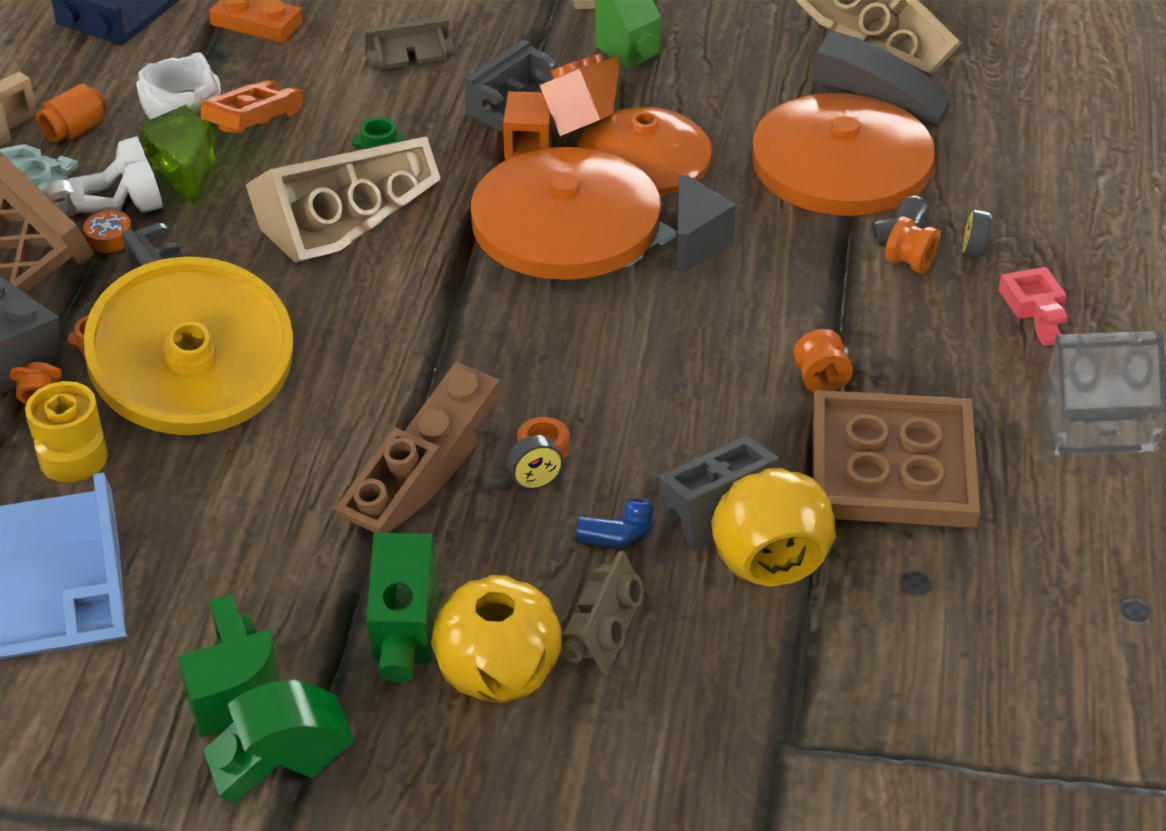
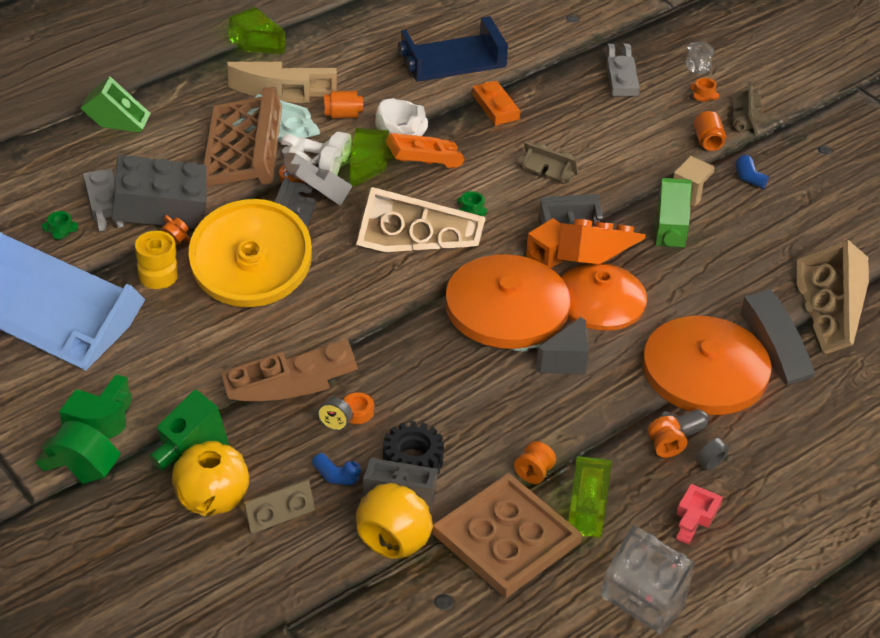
camera: 40 degrees right, 0 degrees up
(176, 207) = (321, 180): none -> light grey slope
(671, 423) = (414, 438): none -> black tyre
(937, 349) = (589, 495): none -> clear neon green slope

